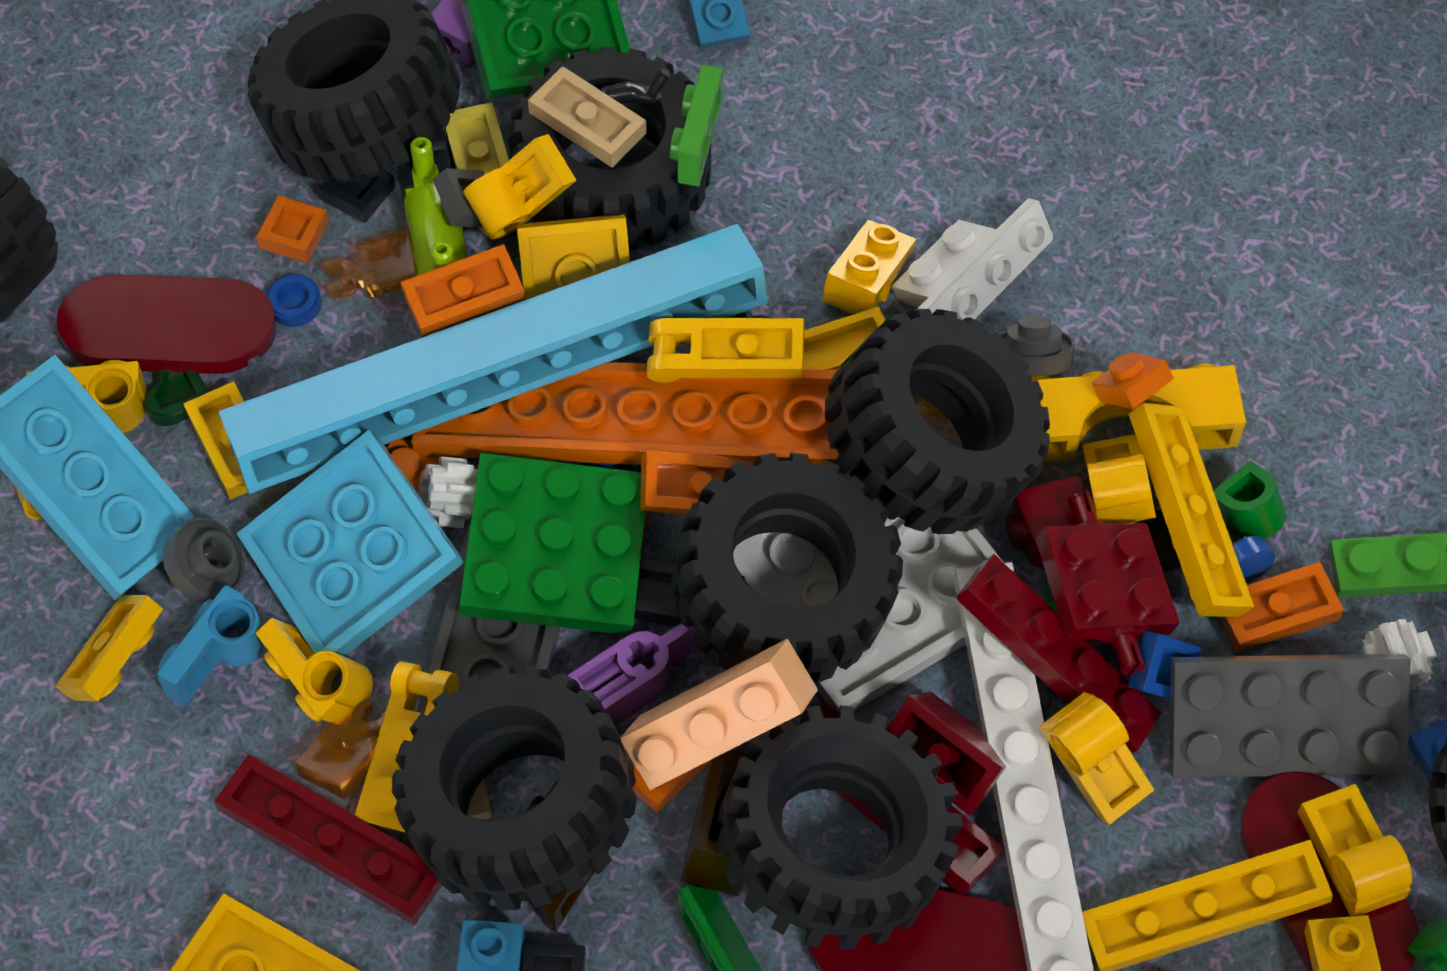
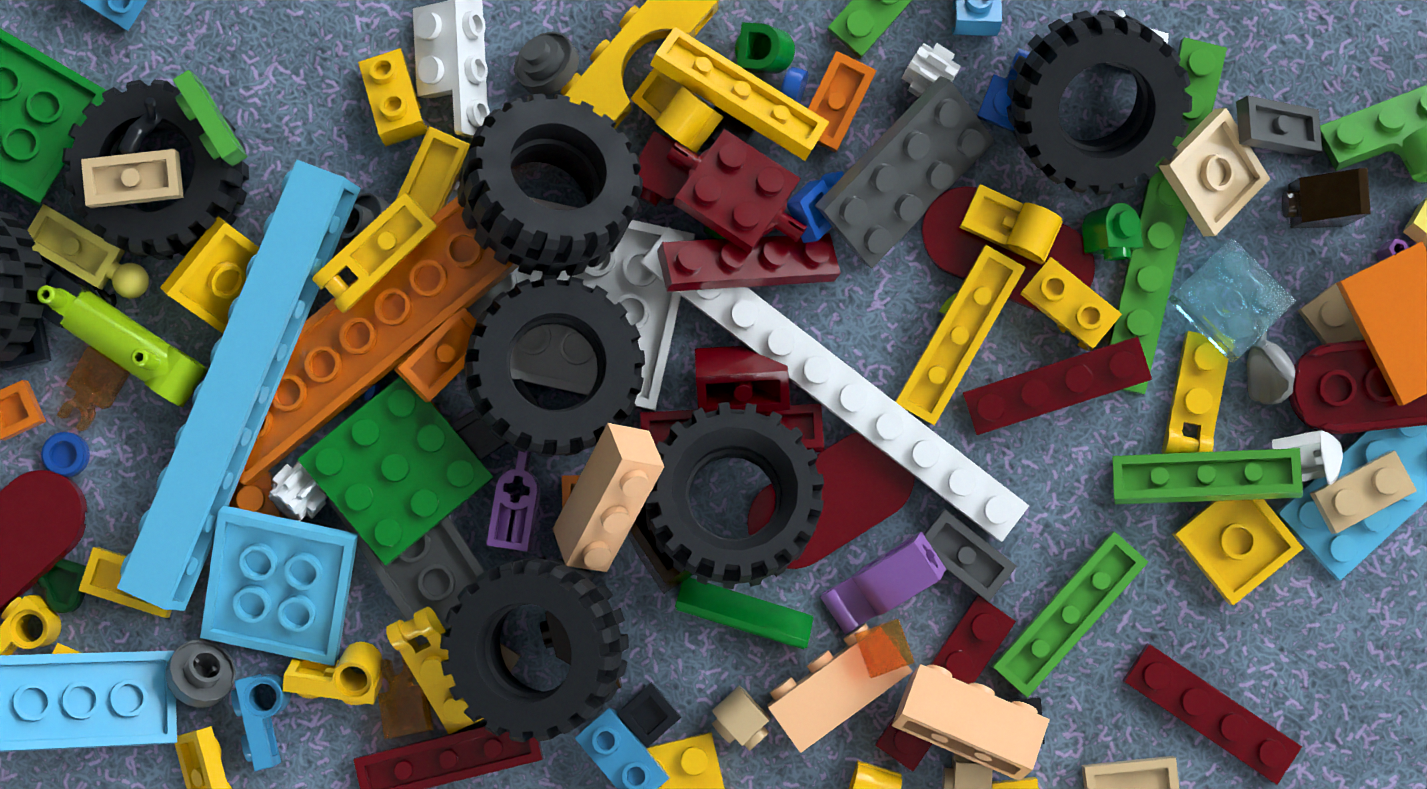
camera: 45 degrees left, 25 degrees up
(450, 188) = (107, 295): dark grey plate -> none
(463, 290) = (177, 367): orange plate -> none
(519, 187) = (140, 267): yellow plate -> none
(1094, 753) = (823, 302): yellow plate -> none
(1132, 380) = (633, 40): orange plate -> none

